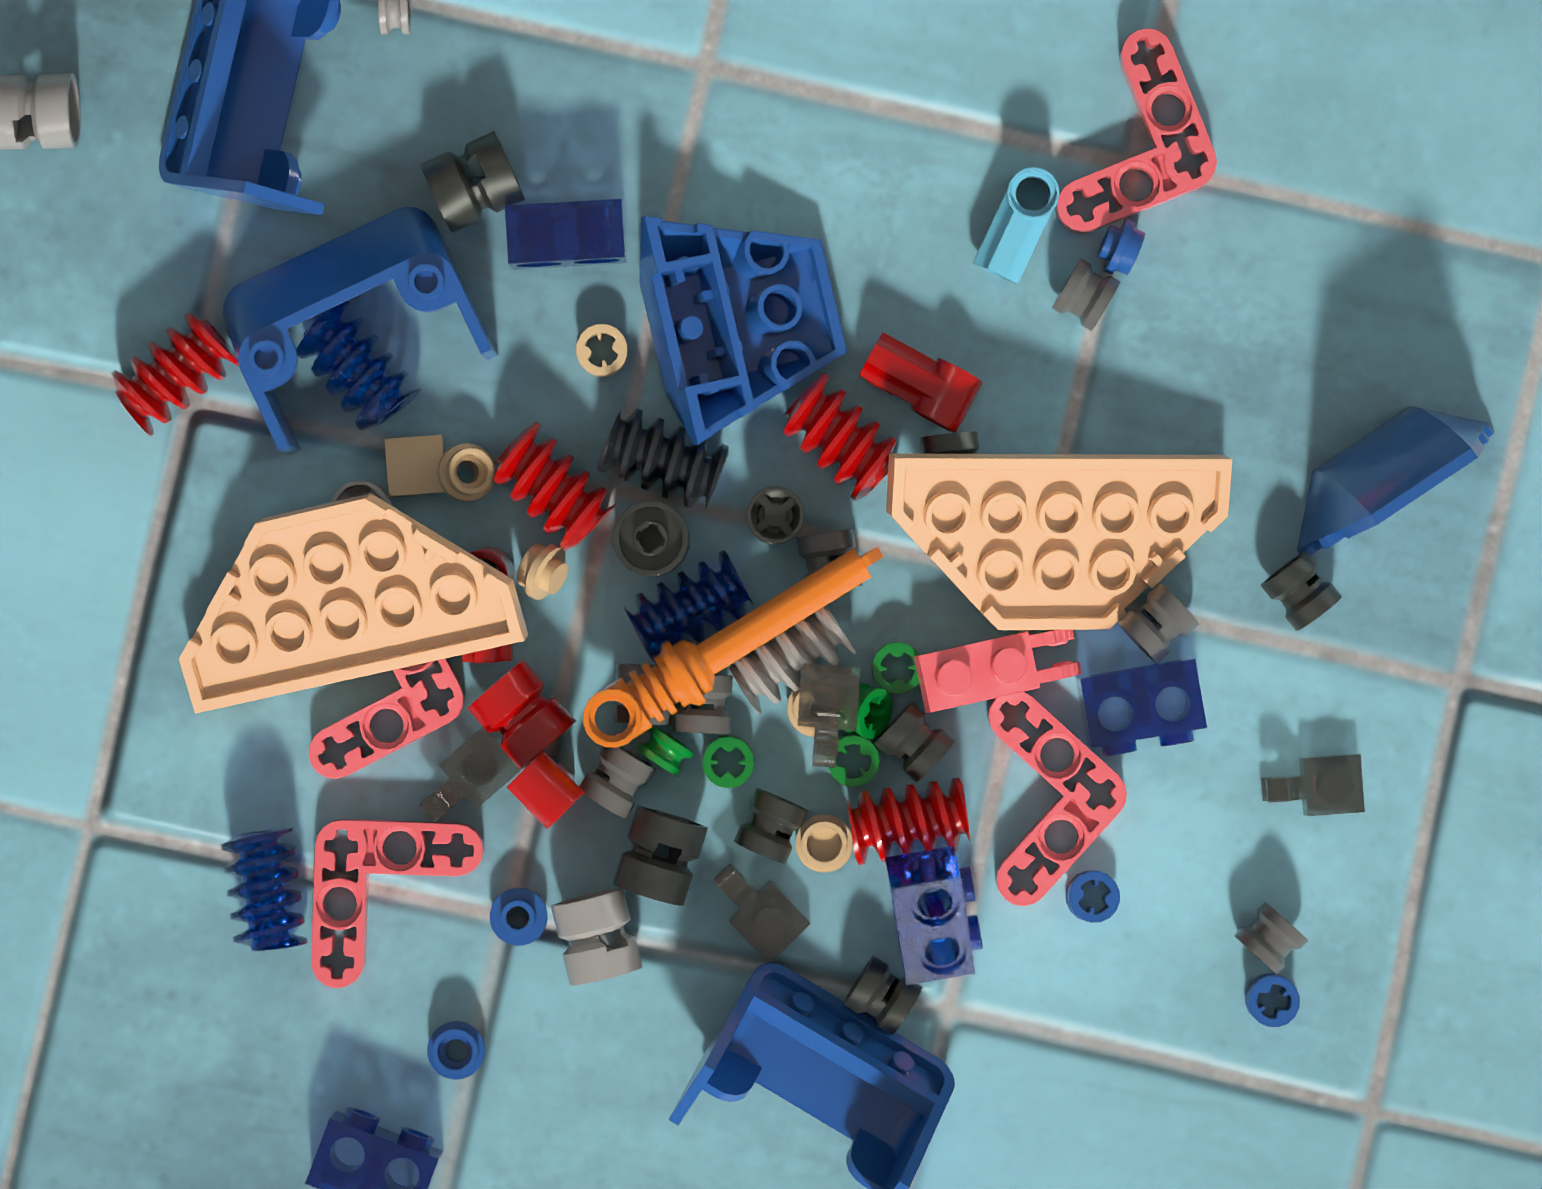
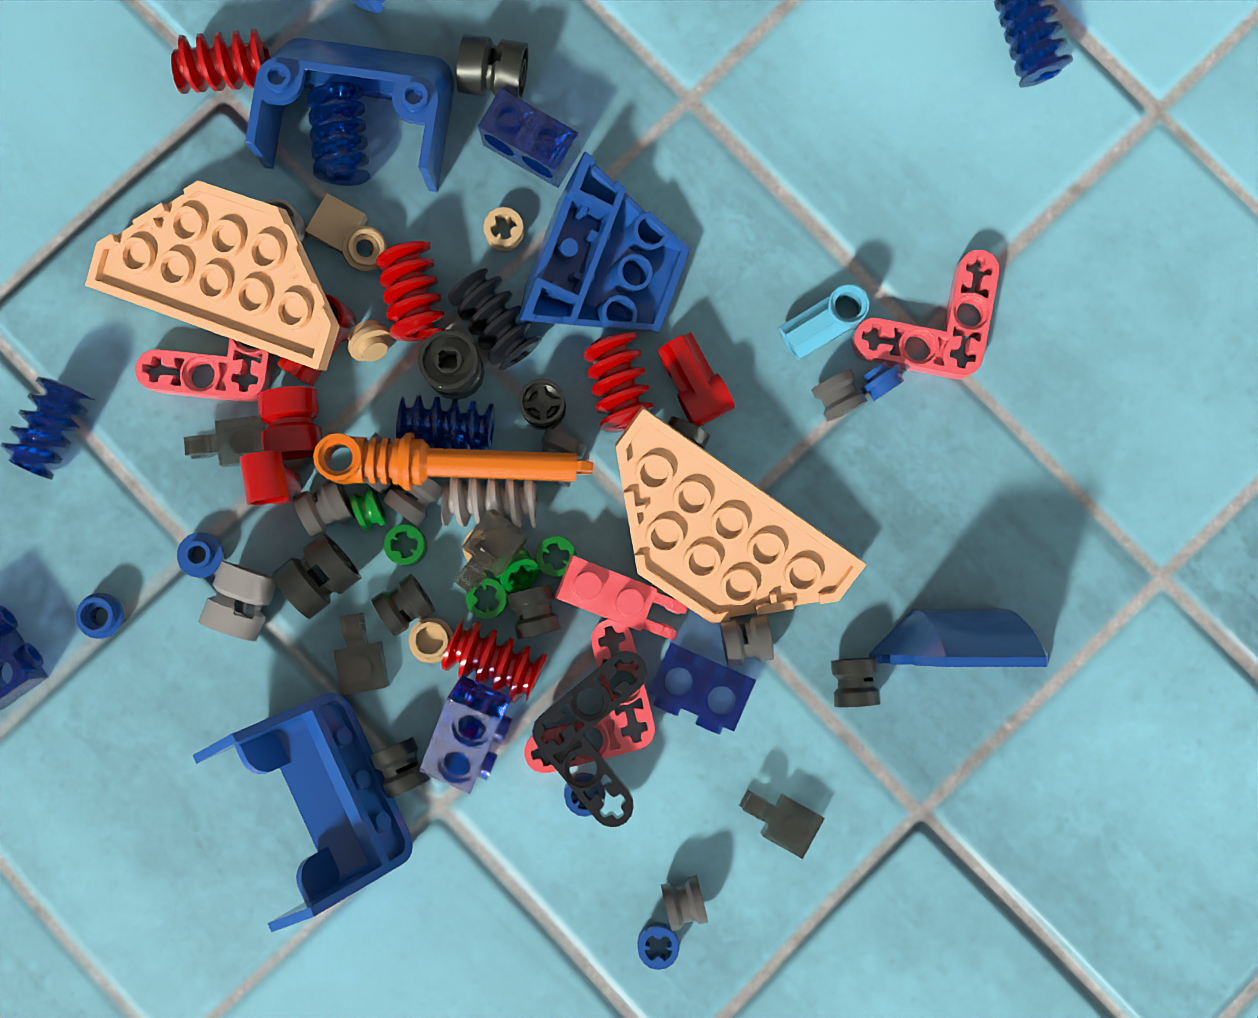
camera: 30 degrees right, 5 degrees down
(373, 860) = (129, 453): coral beam -> none
(1050, 847) = (577, 743): none -> black beam

